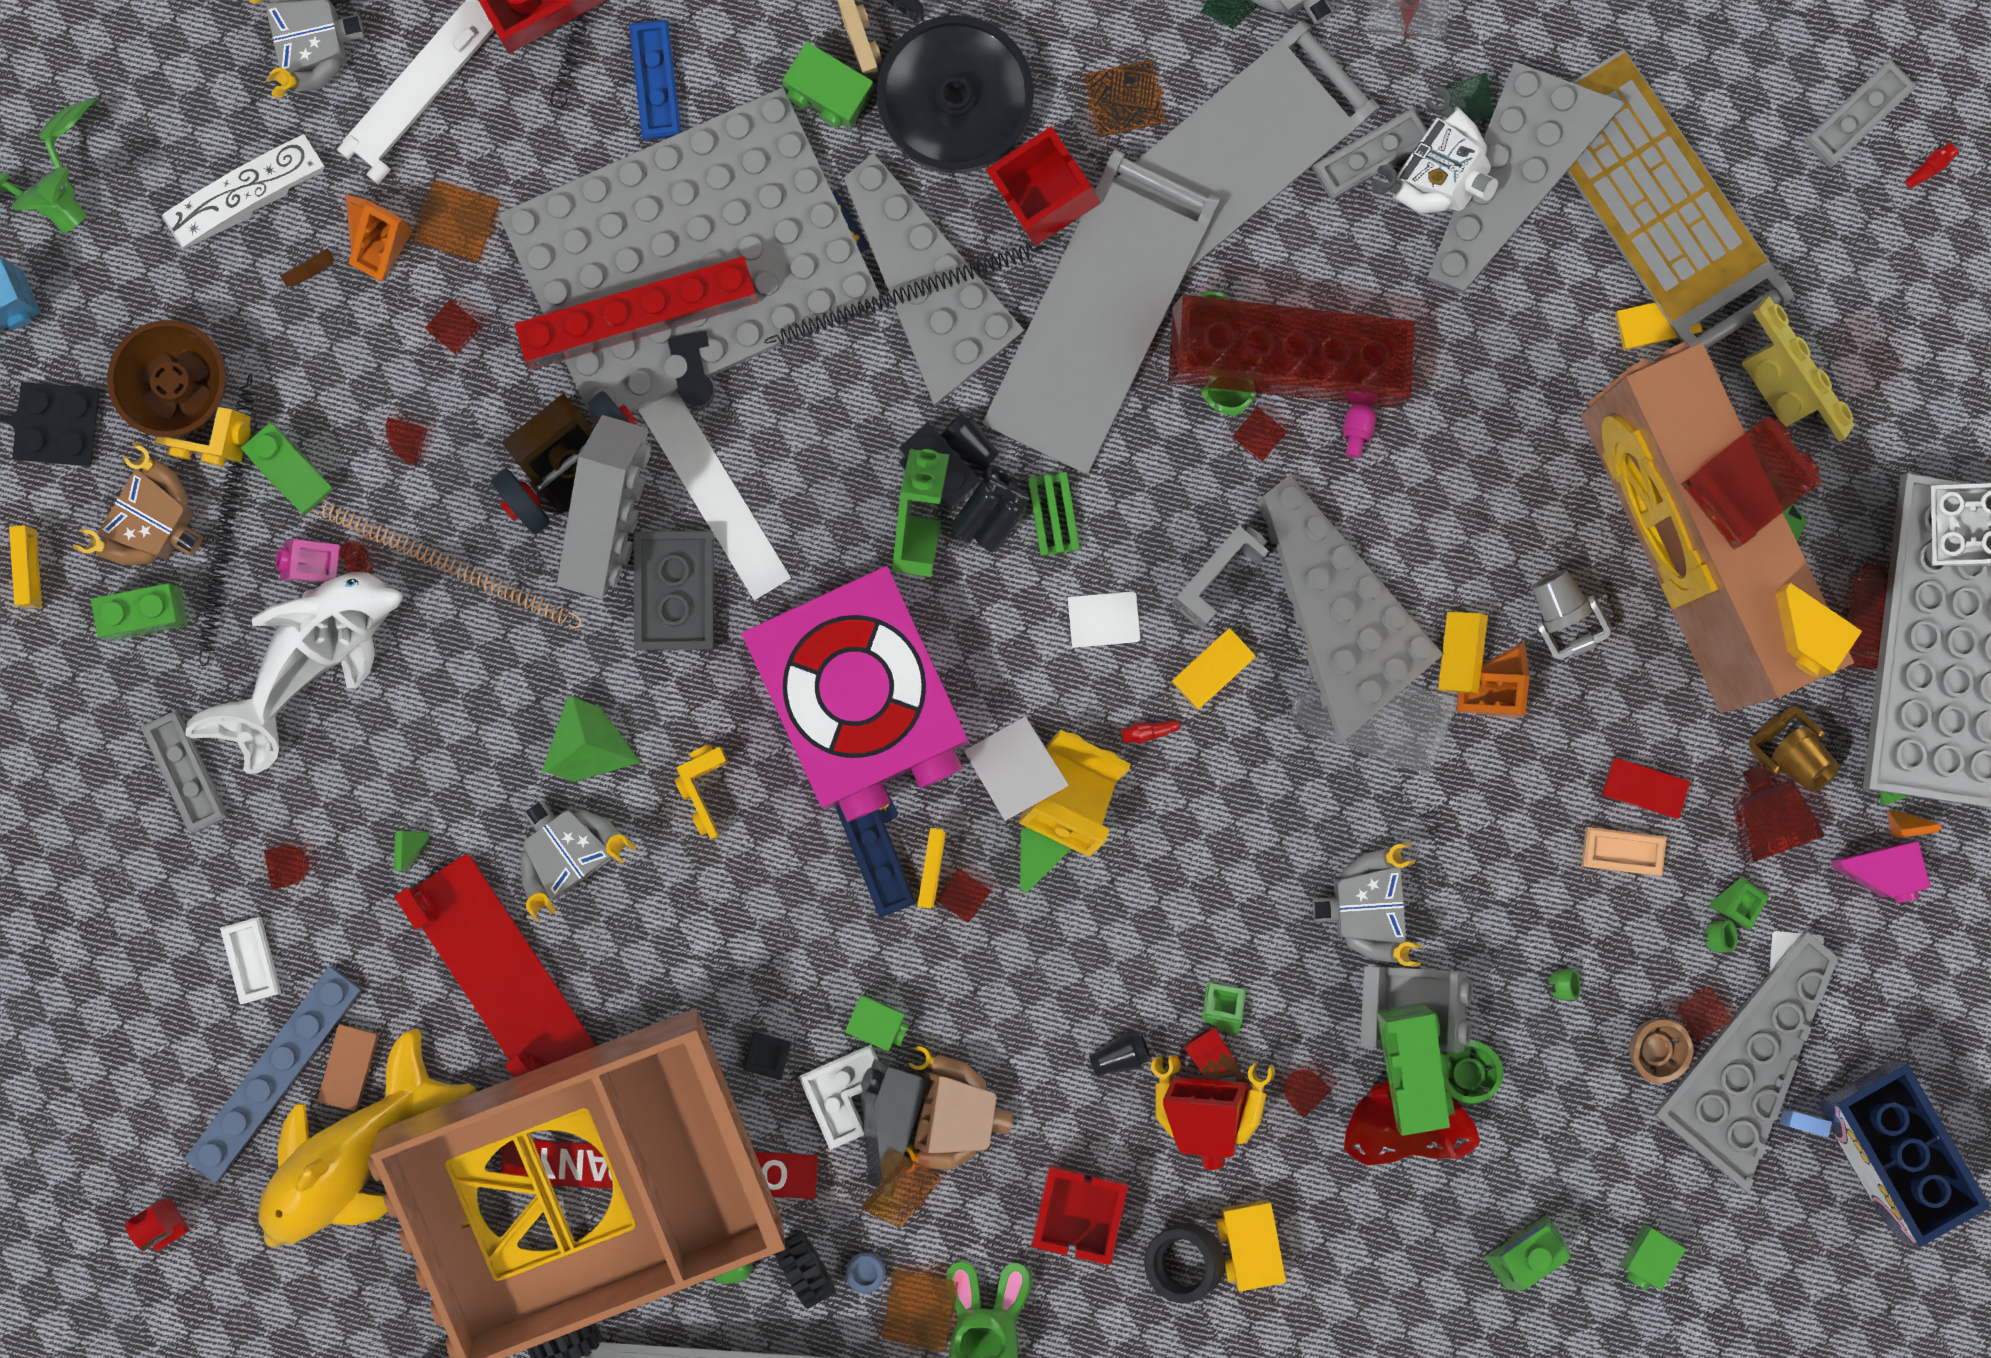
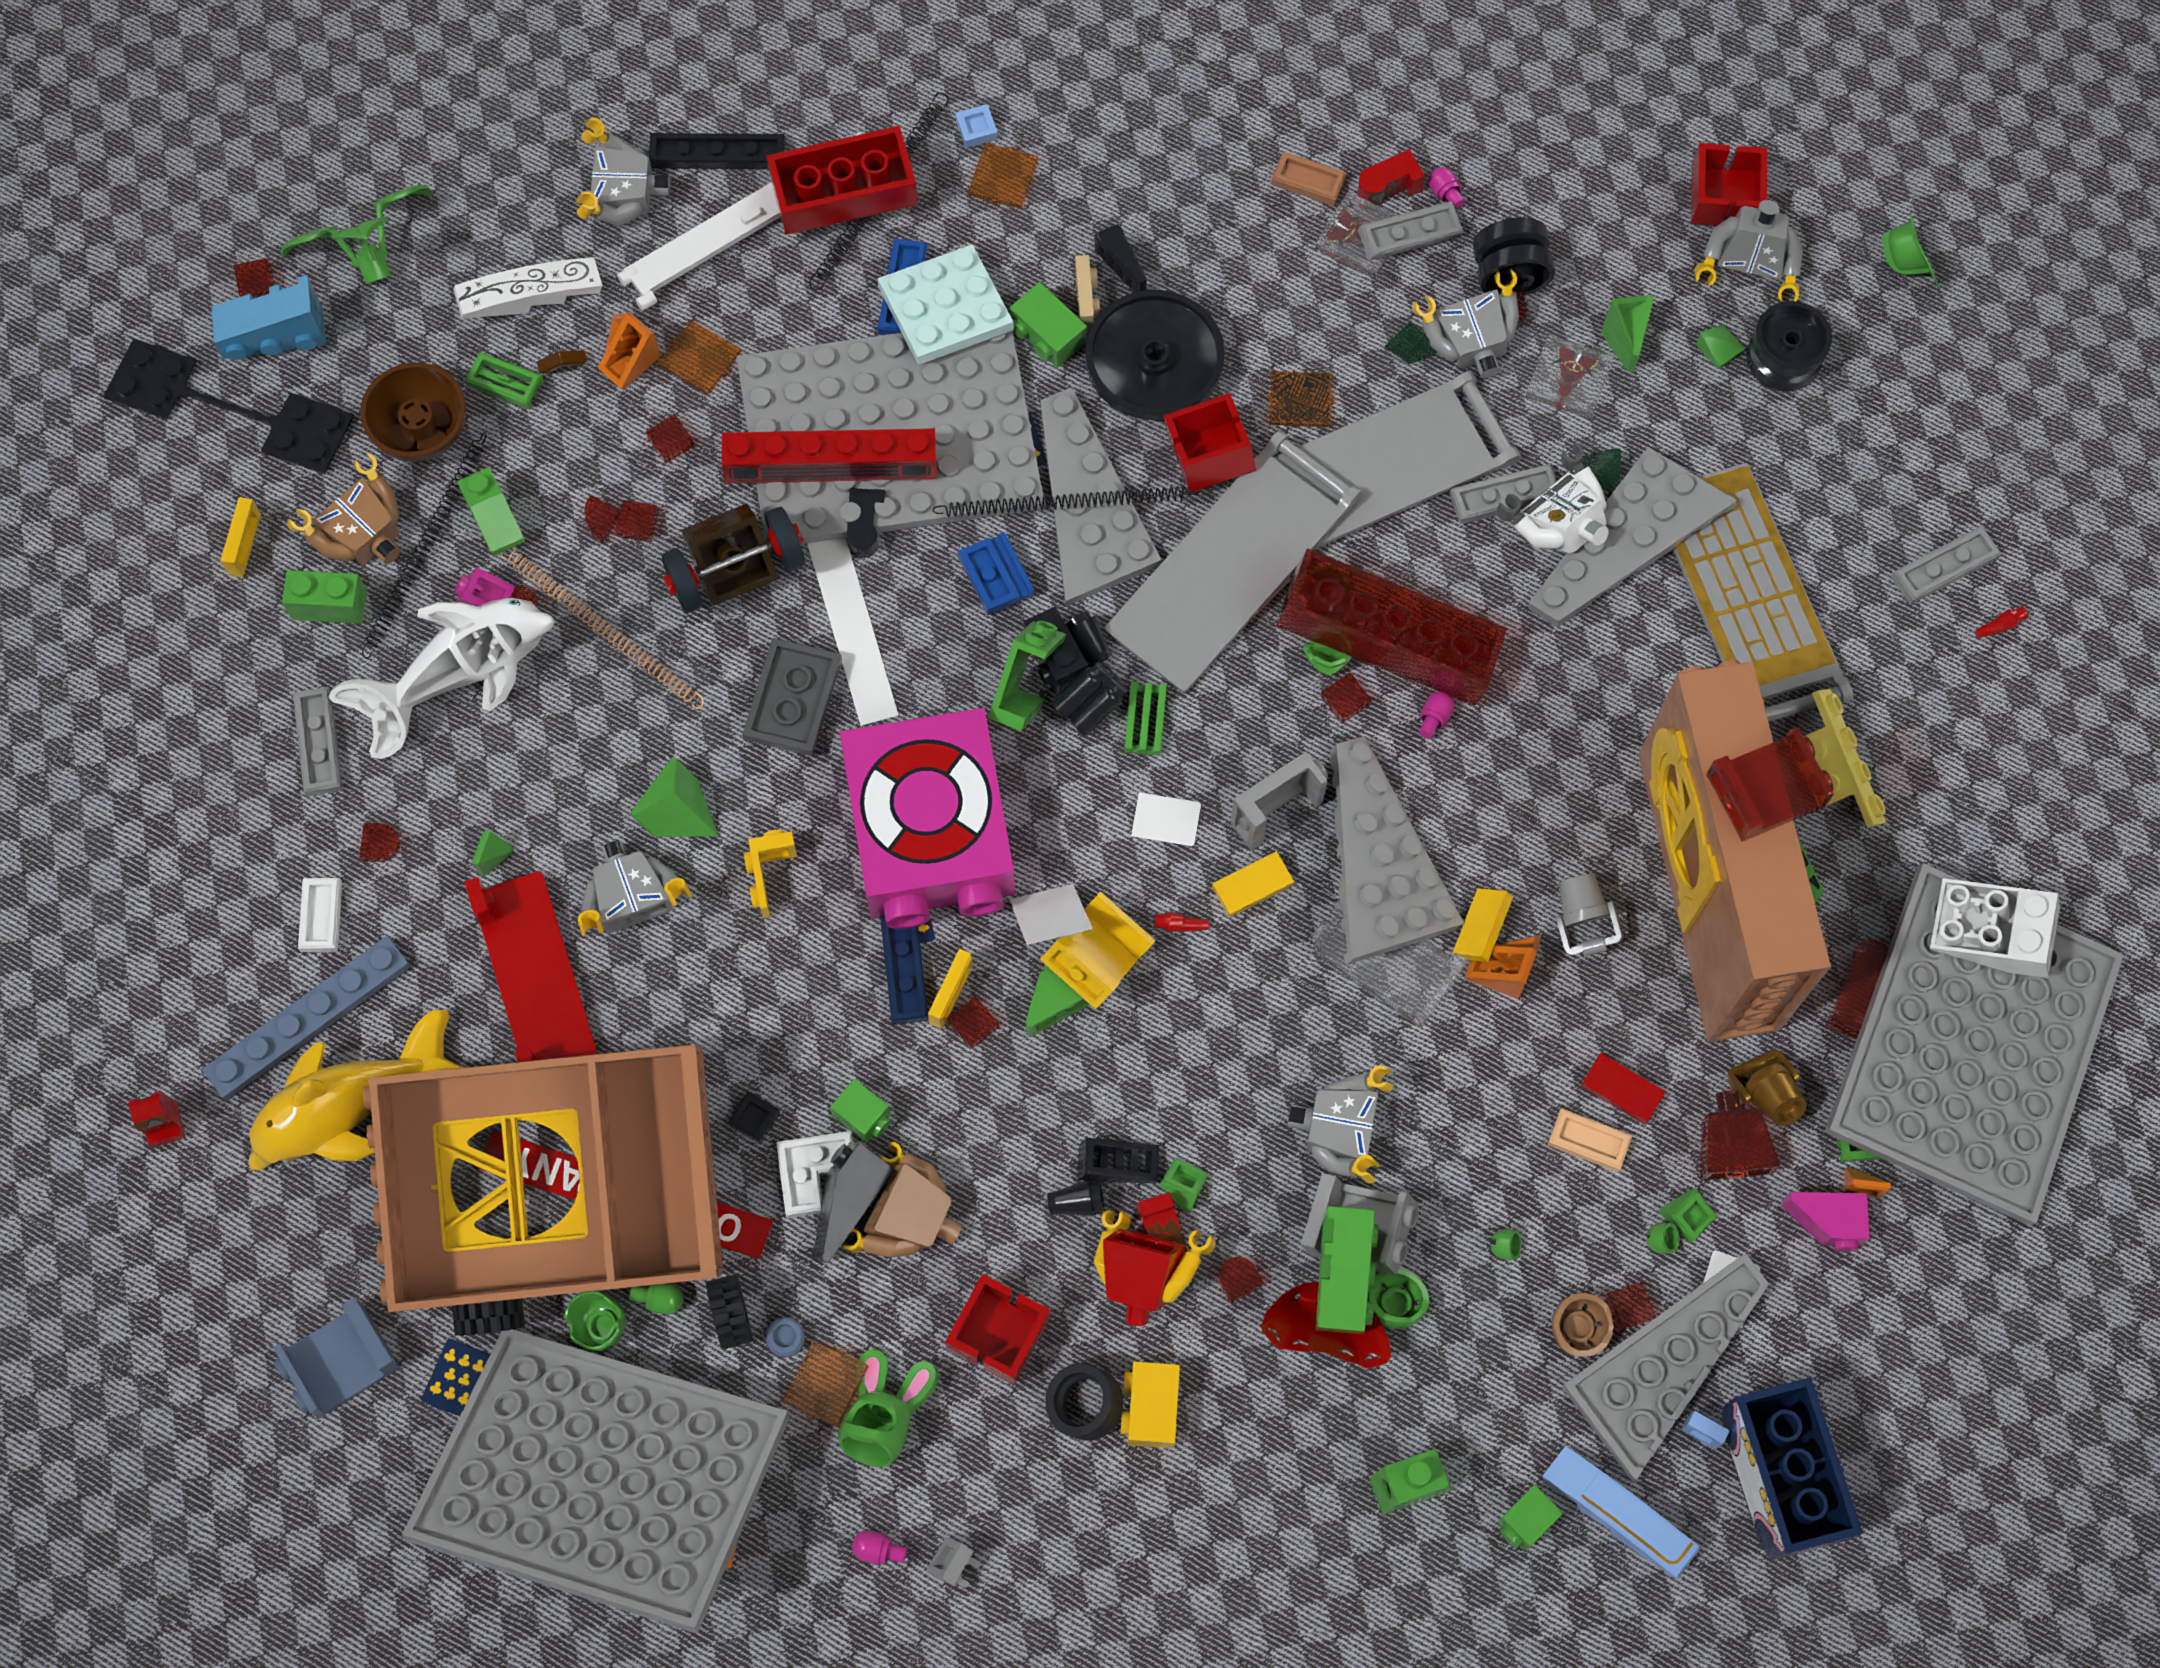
camera: 15 degrees right, 15 degrees down
(228, 436) = (443, 477): yellow bracket -> none
(283, 311) = (497, 391): none -> bright green tile
(348, 1067) = (375, 1027): nougat tile -> none
(446, 432) = (636, 521): none -> clear red tile
(603, 507) = (751, 597): light grey brick -> none
(673, 1316) = (595, 1320): none -> bright green hair
(709, 93) = (945, 304): none -> light aqua plate
(850, 392) = (995, 573): none -> blue plate
(902, 1192) = (840, 1266): clear orange piece -> none
(1119, 1011) = (1117, 1174): none -> black slope
(1741, 1228) = (1621, 1513): none -> light blue slope
(1813, 632) = (1798, 924): yellow slope -> none

